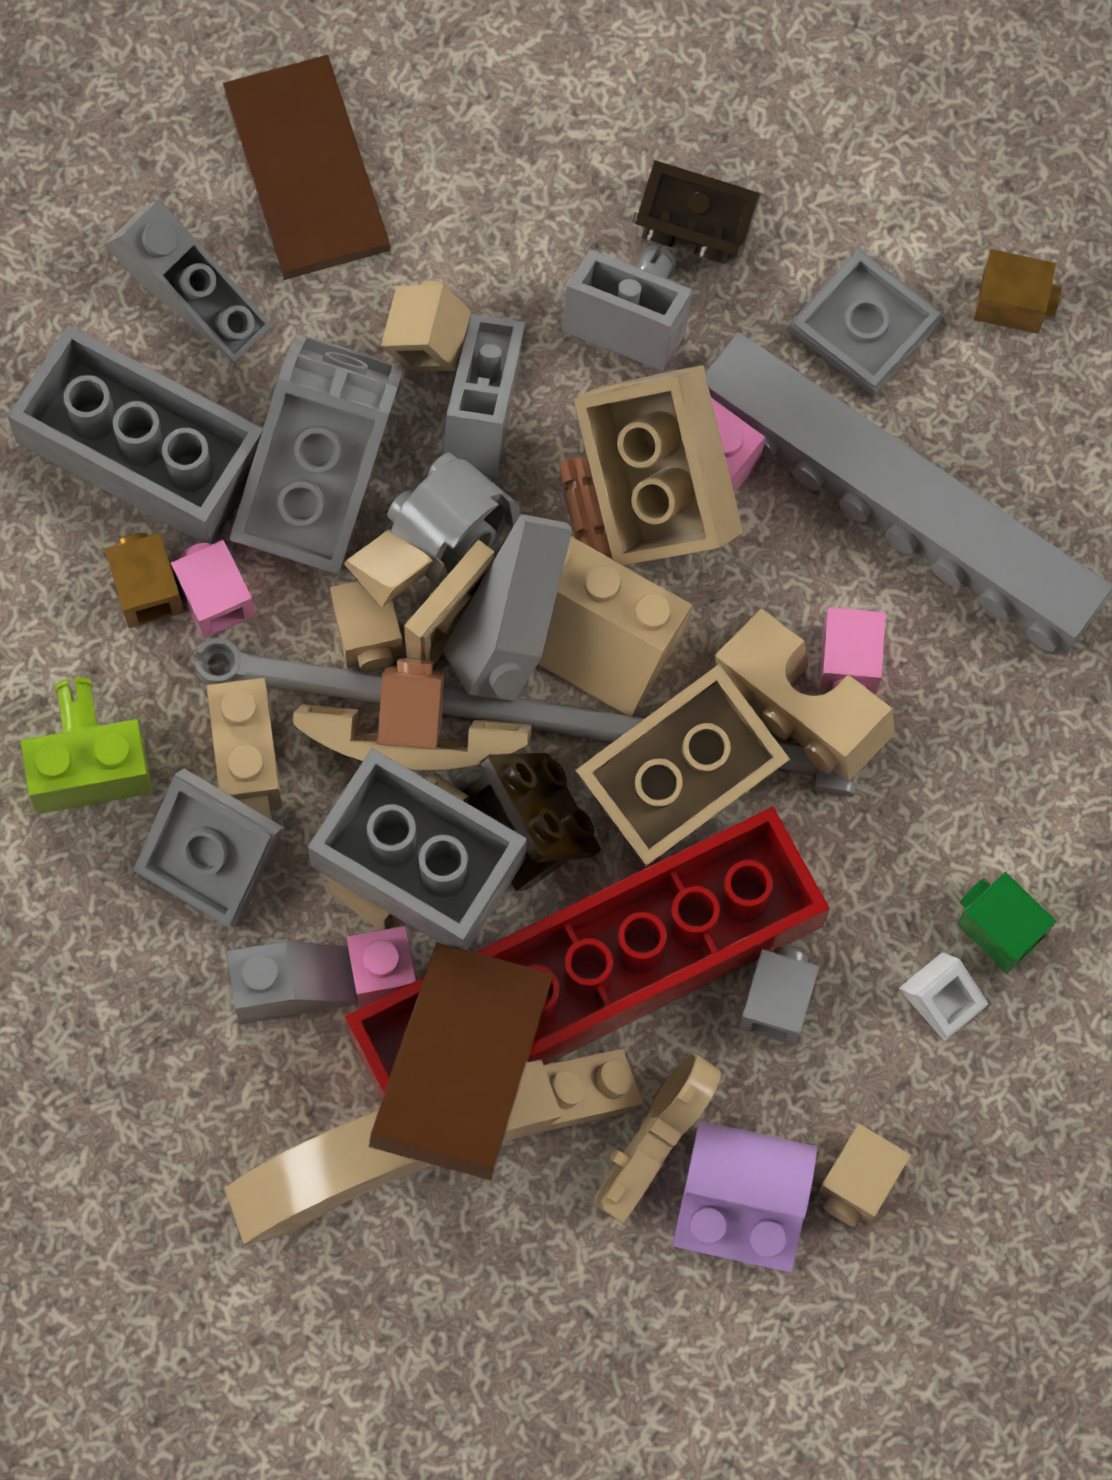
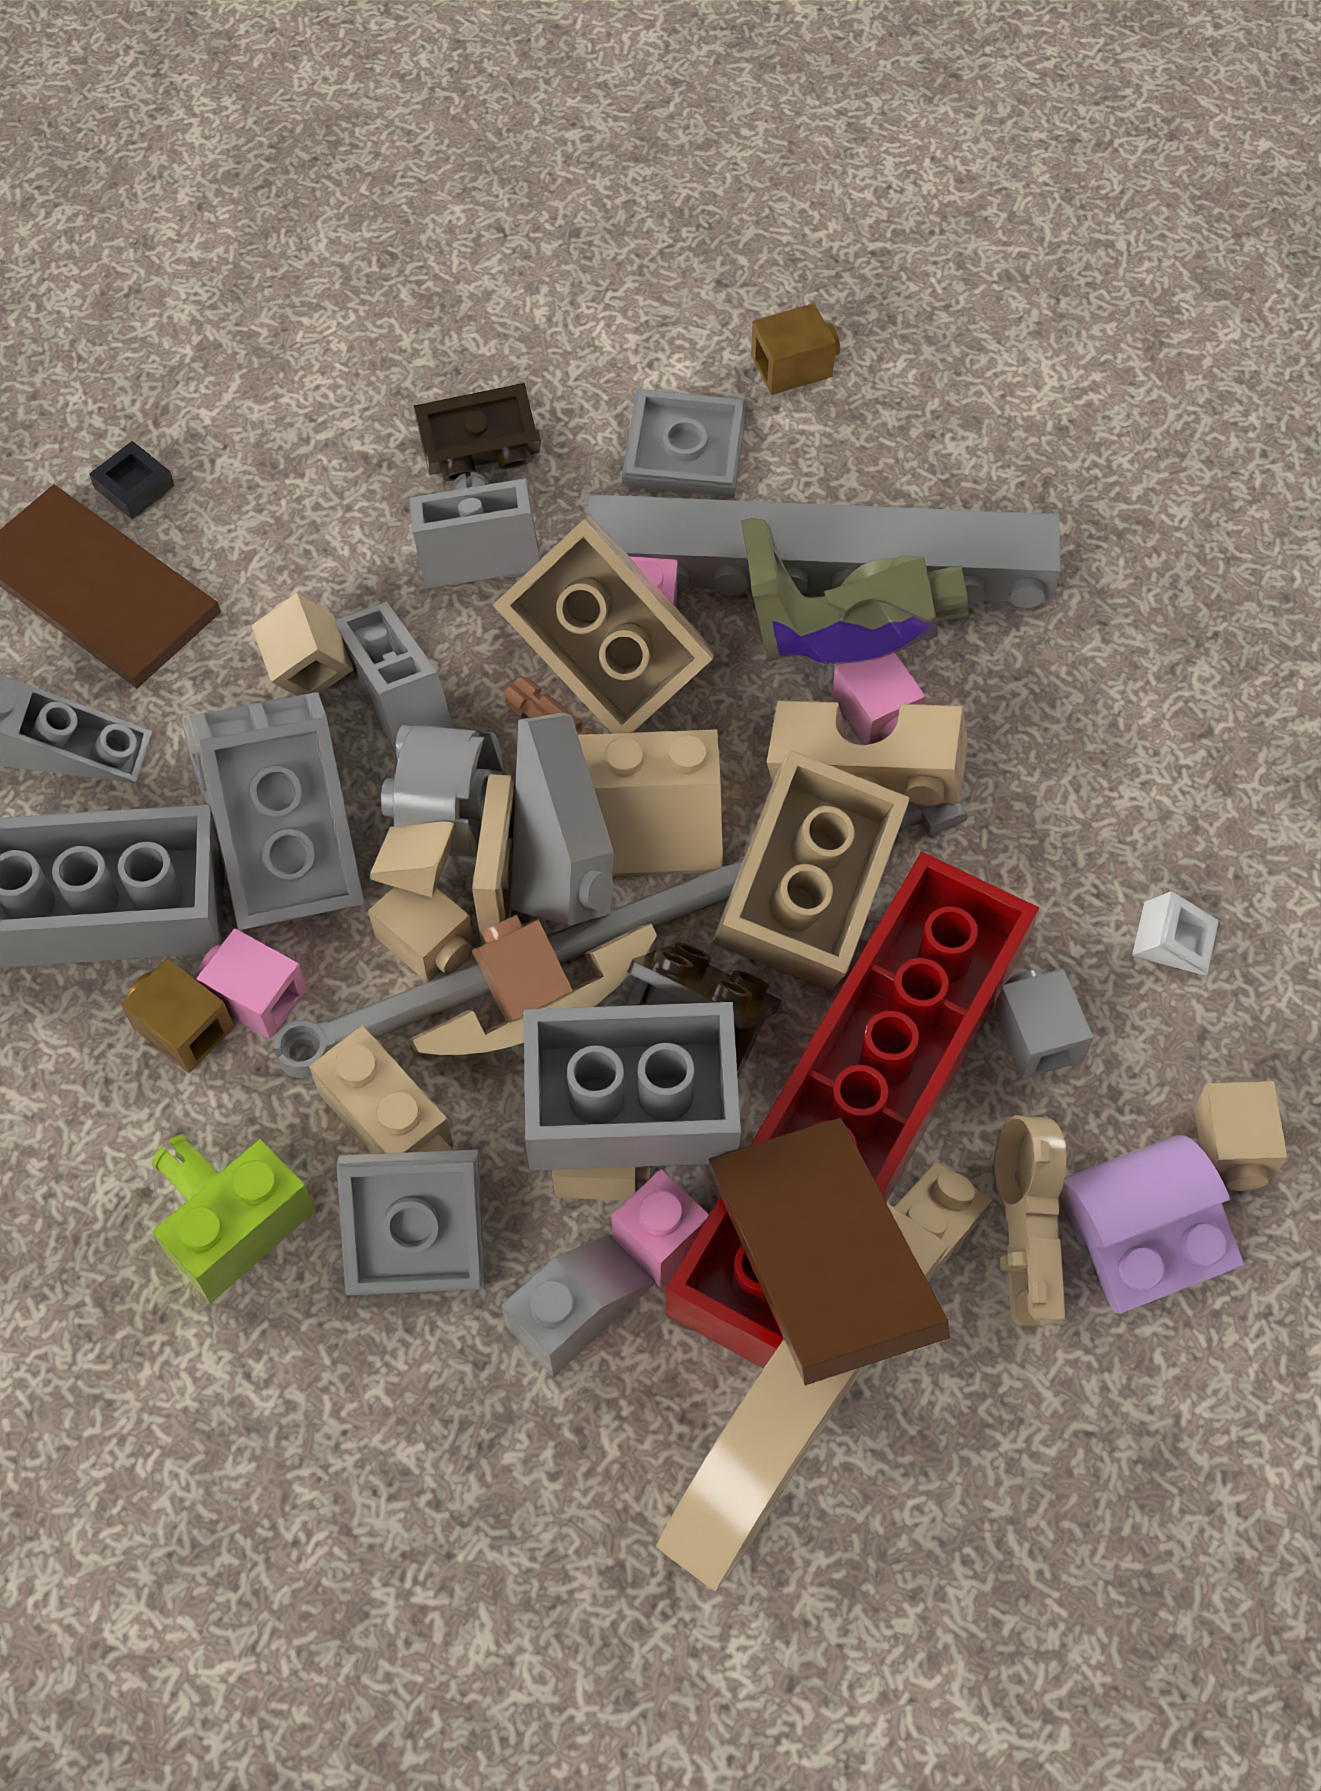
camera: 30 degrees left, 10 degrees down
(391, 87) = (132, 479): none -> black plate
(875, 584) = (866, 618): none -> olive hips
(1004, 920) = (1182, 837): green brick -> none

